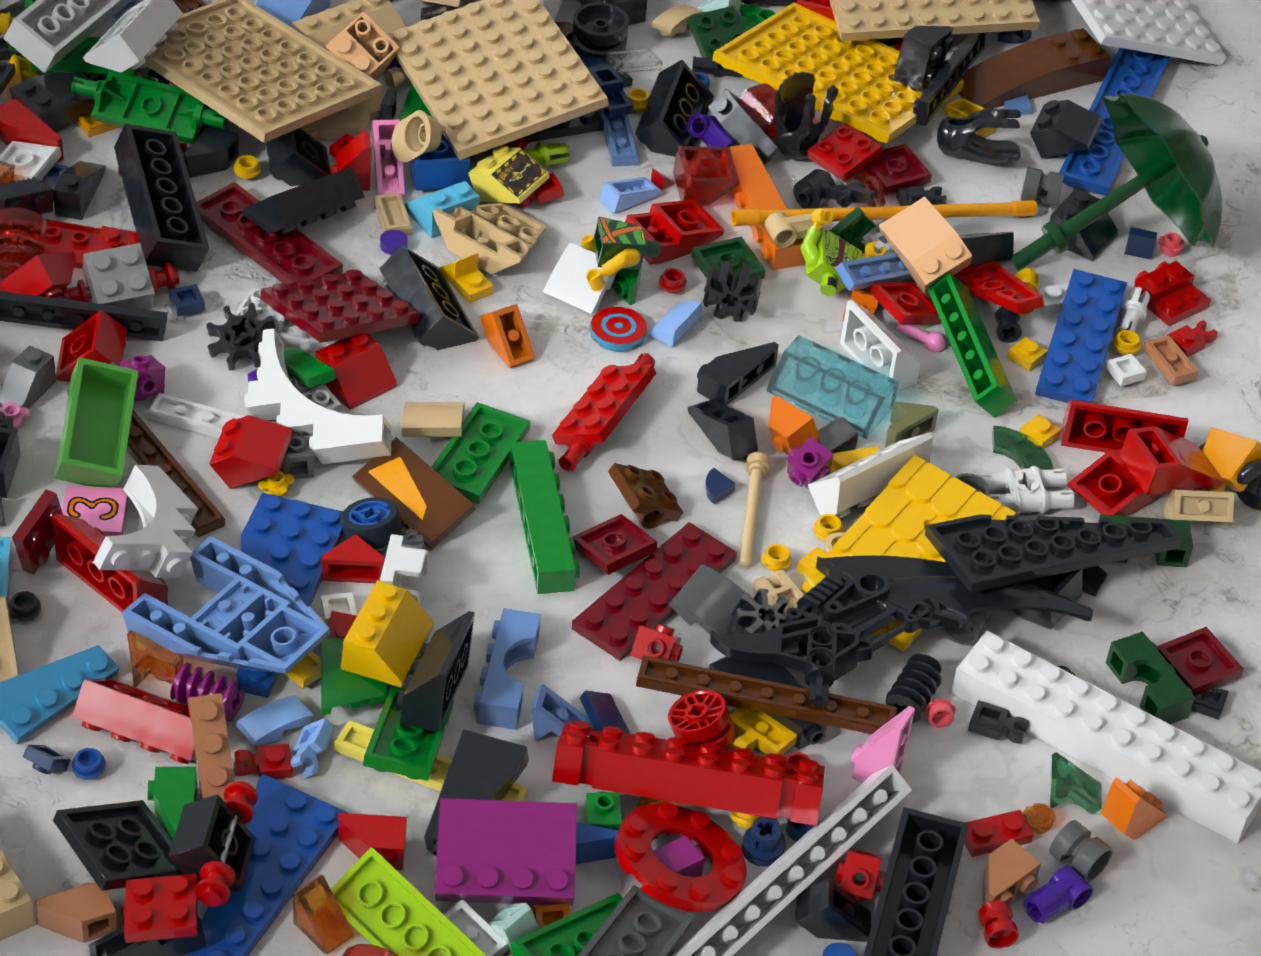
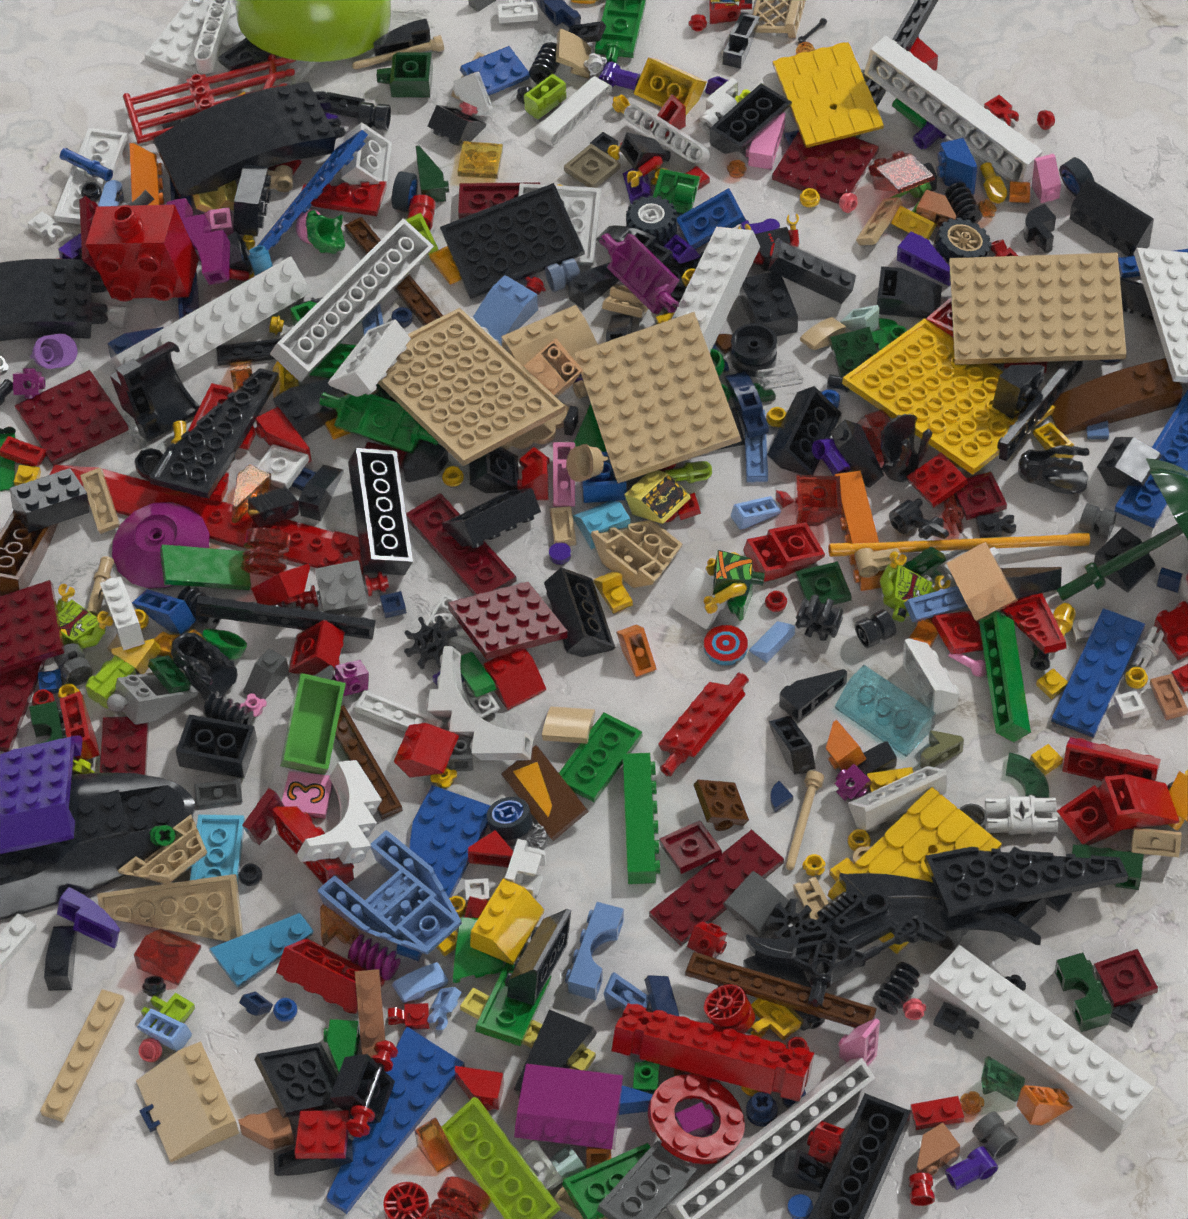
camera: 15 degrees right, 10 degrees up
(802, 302) = (878, 627): none -> black wheel

